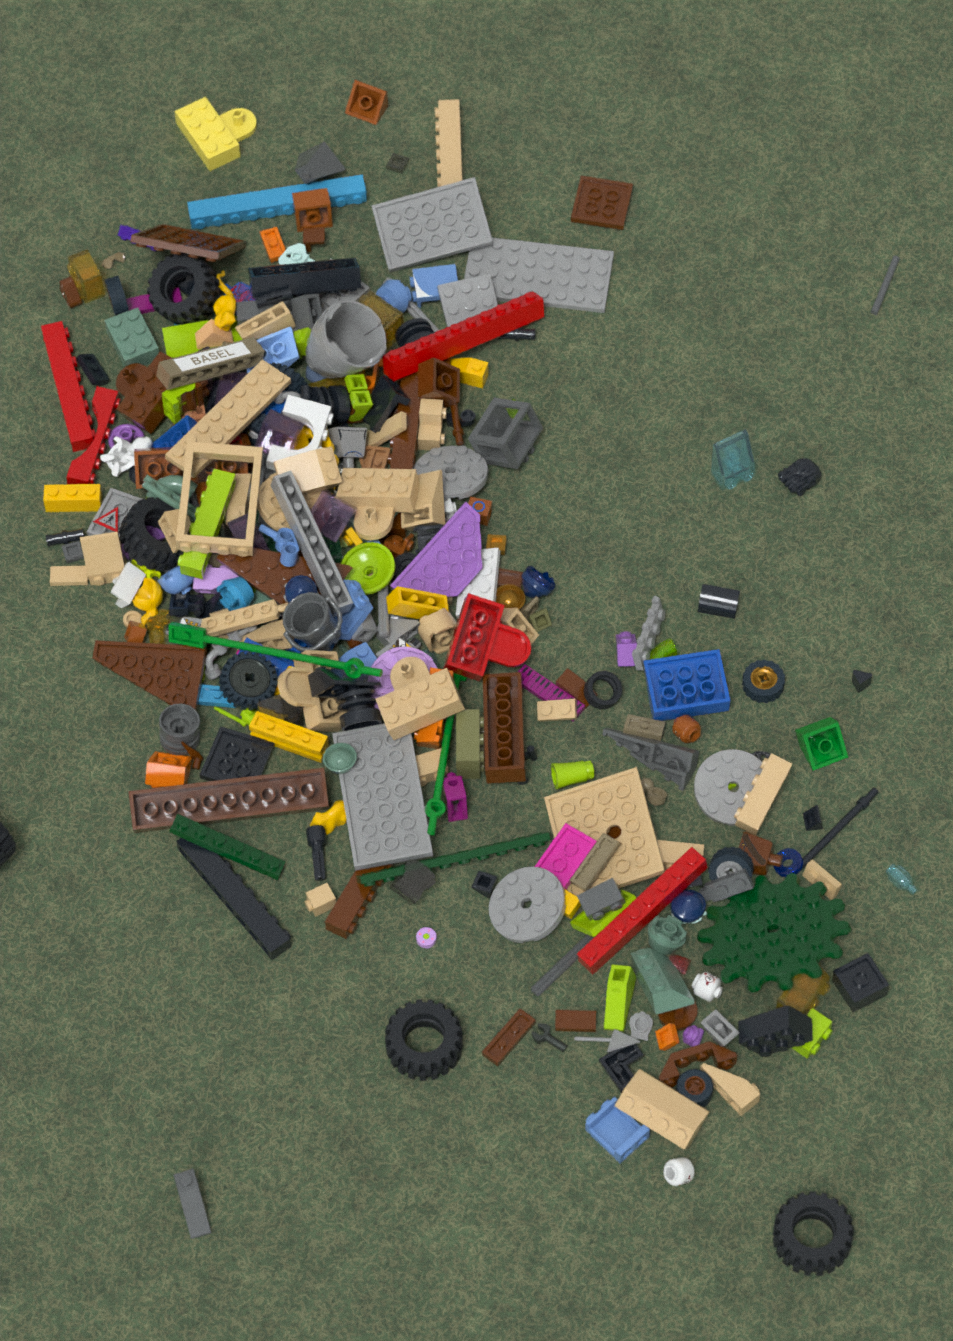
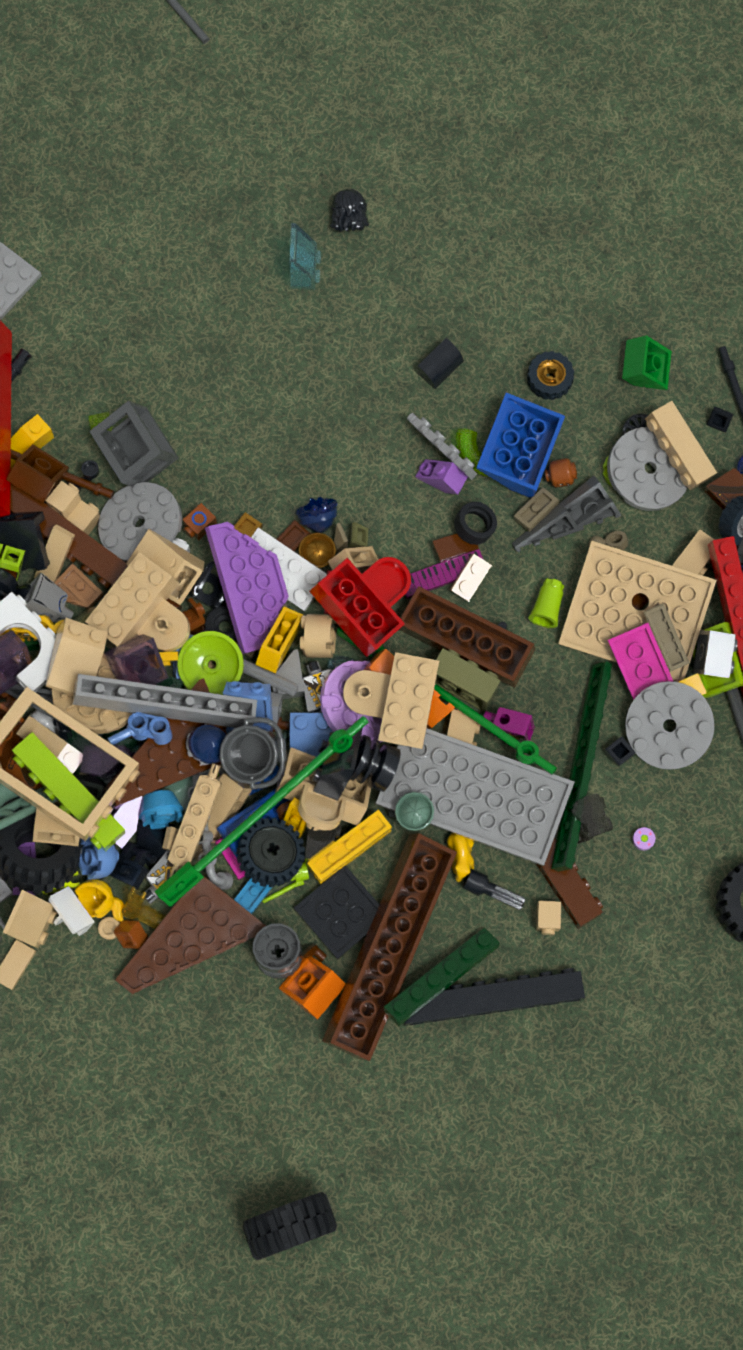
camera: 65 degrees left, 15 degrees up
(861, 680) = (602, 291): black slope -> none

